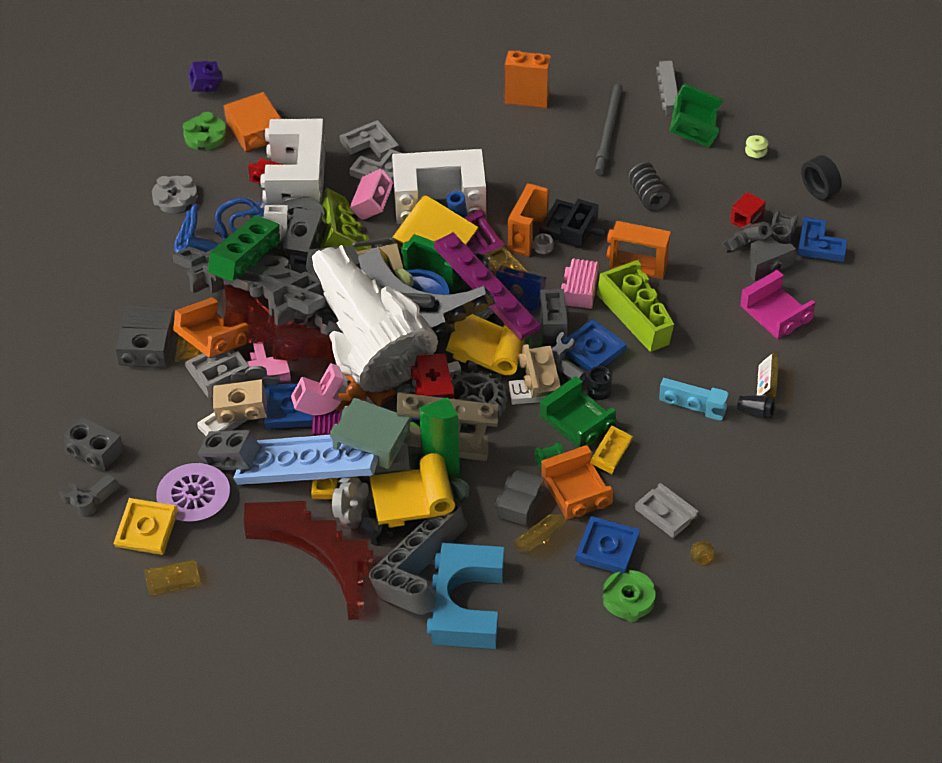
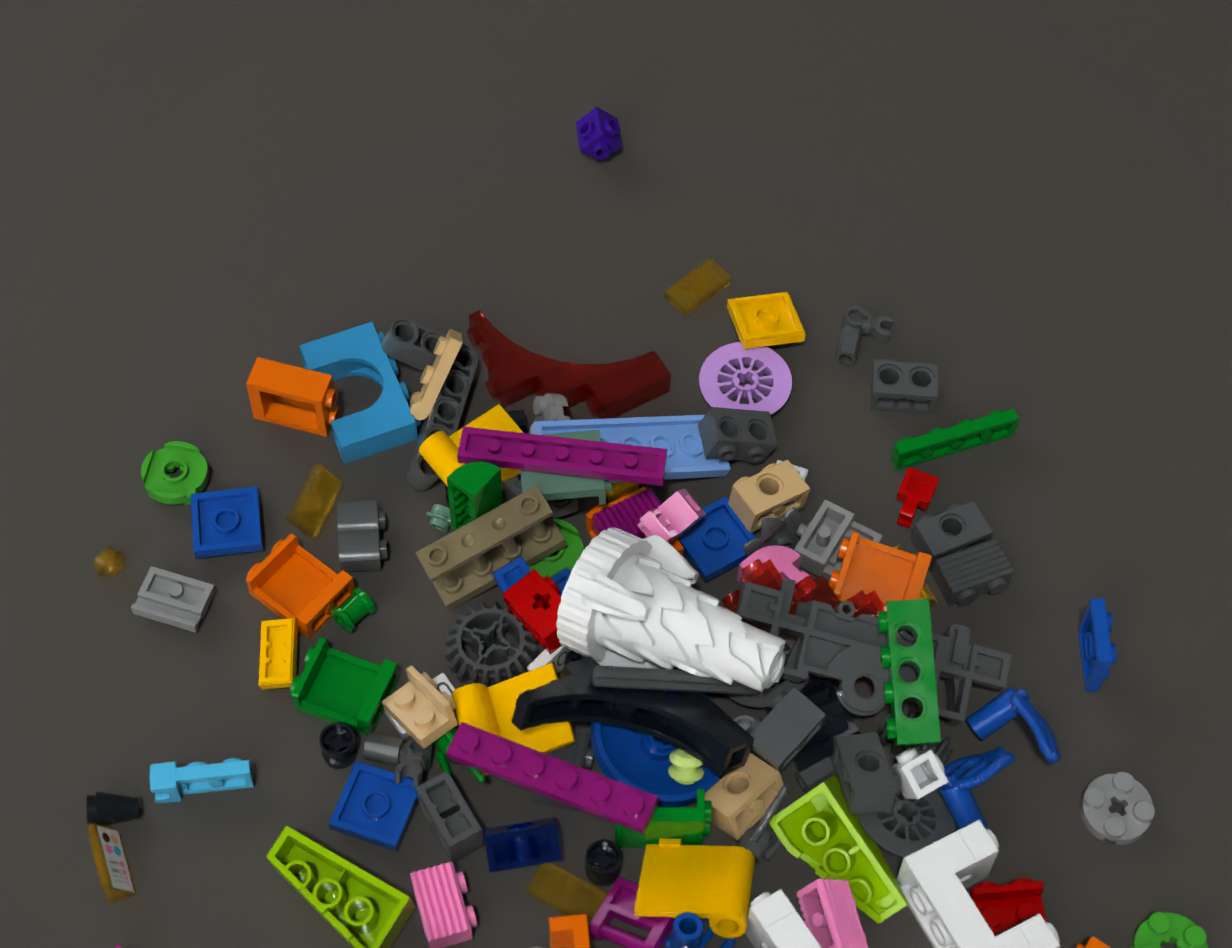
camera: 150 degrees right, 10 degrees up
(90, 399) = (954, 439): none -> green plate
(118, 250) = (1095, 645): none -> blue plate
(143, 381) = (915, 492): none -> red plate
(157, 719) = (598, 134): none -> dark purple brick
(371, 418) = (563, 455): none -> magenta plate
(409, 555) = (435, 375): none -> tan plate
(520, 596) = (292, 396): none -> orange window

